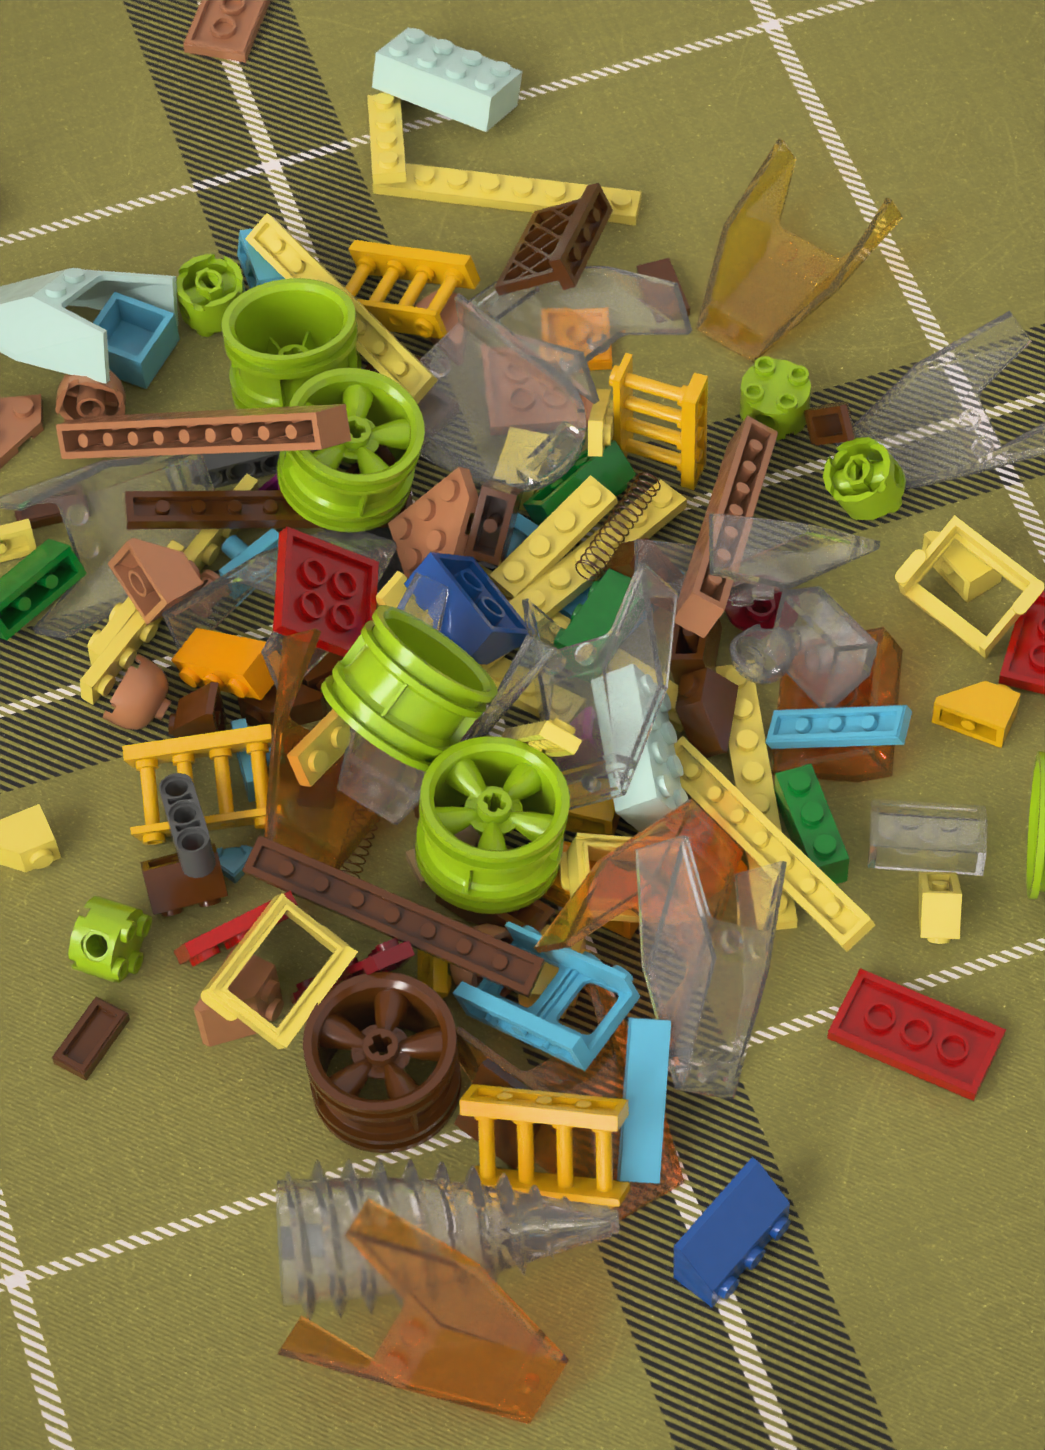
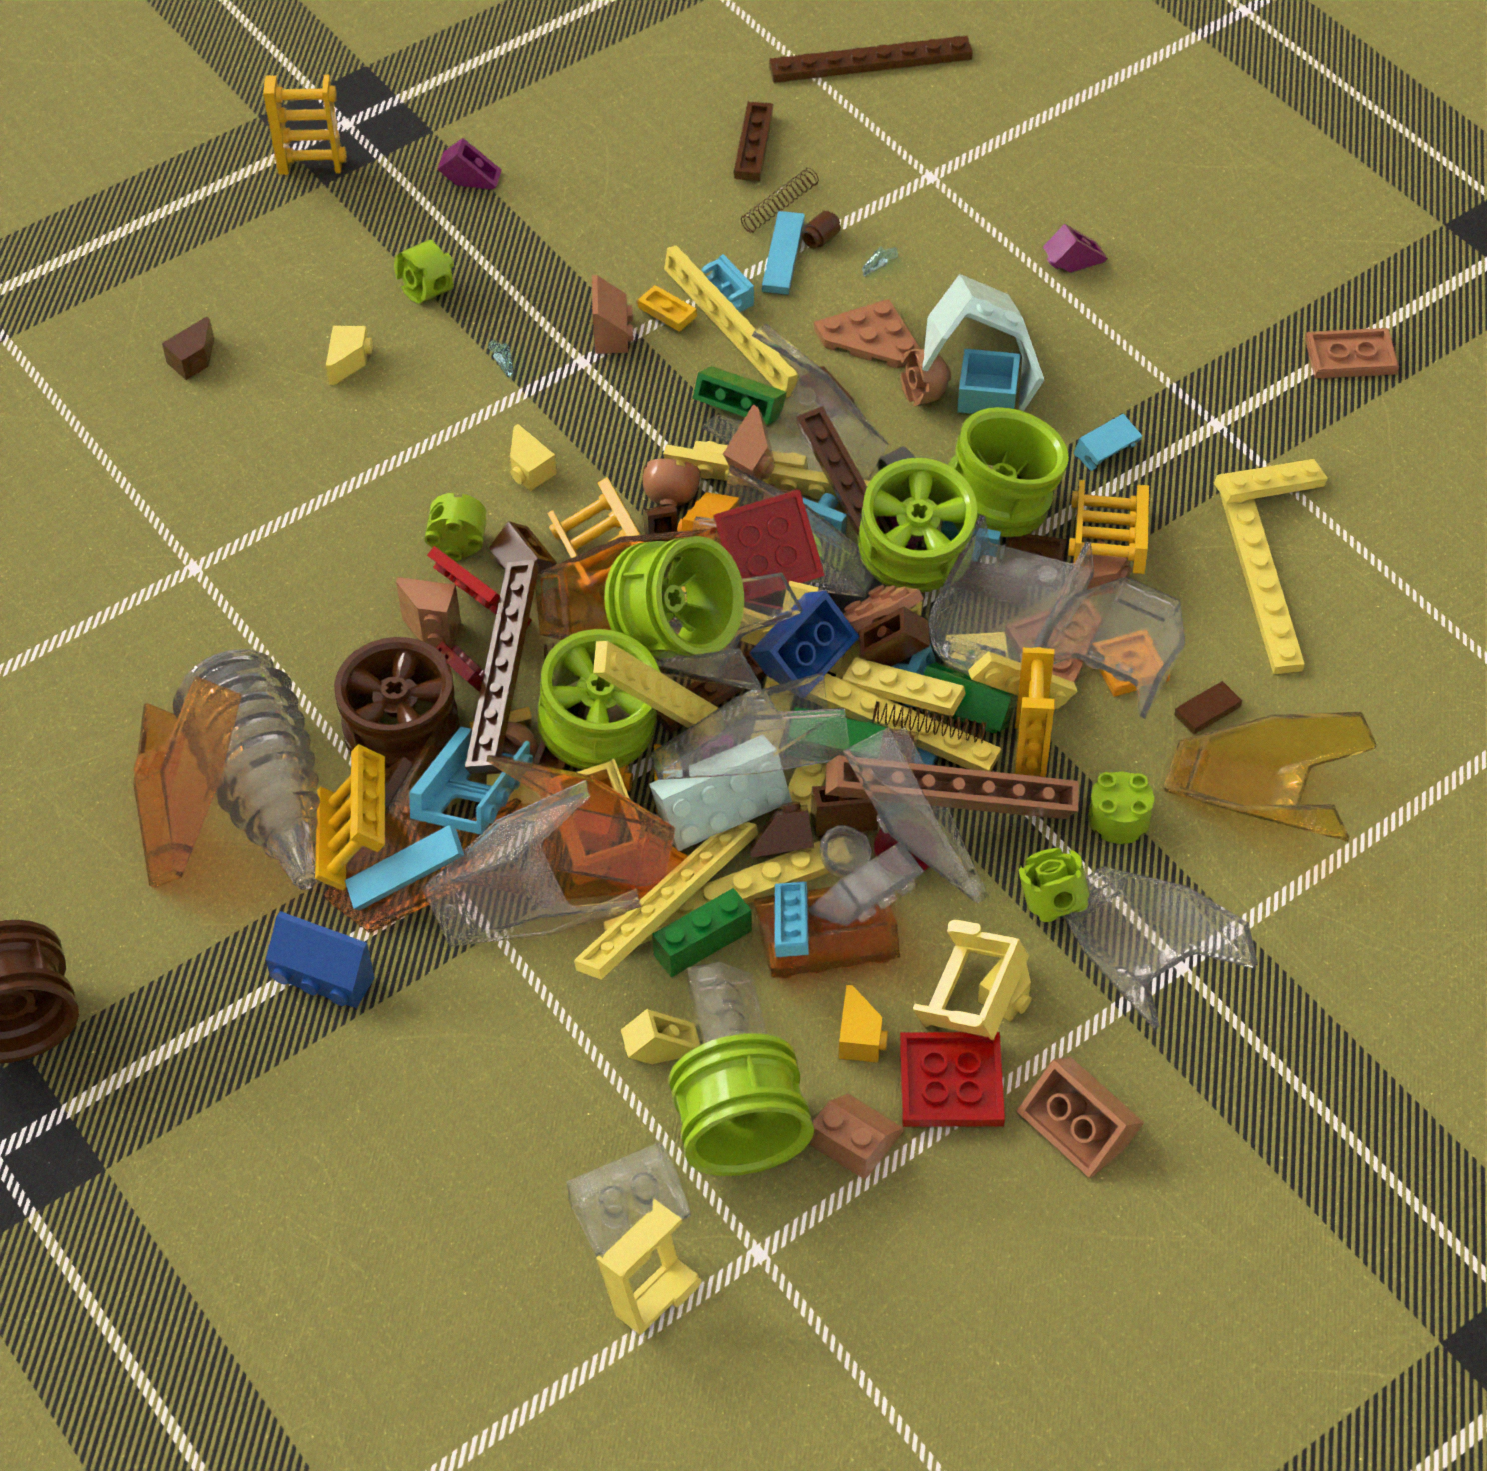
camera: 70 degrees right, 5 degrees down
(91, 1038) = (387, 549): reddish brown tile -> none
(187, 825) = (549, 530): dark grey beam -> none
(205, 432) = (878, 426): nougat brick -> none
(206, 290) = (1061, 409): lime brick -> none
(231, 1007) = (469, 630): light yellow piece -> none
(373, 339) = (1074, 482): light yellow plate -> none
(447, 79) = (1348, 498): light aqua brick -> none
(559, 242) = (1205, 614): reddish brown fence -> none
(830, 423) = (1096, 842): reddish brown slope -> none
(916, 1034) = (536, 1052): red plate -> none

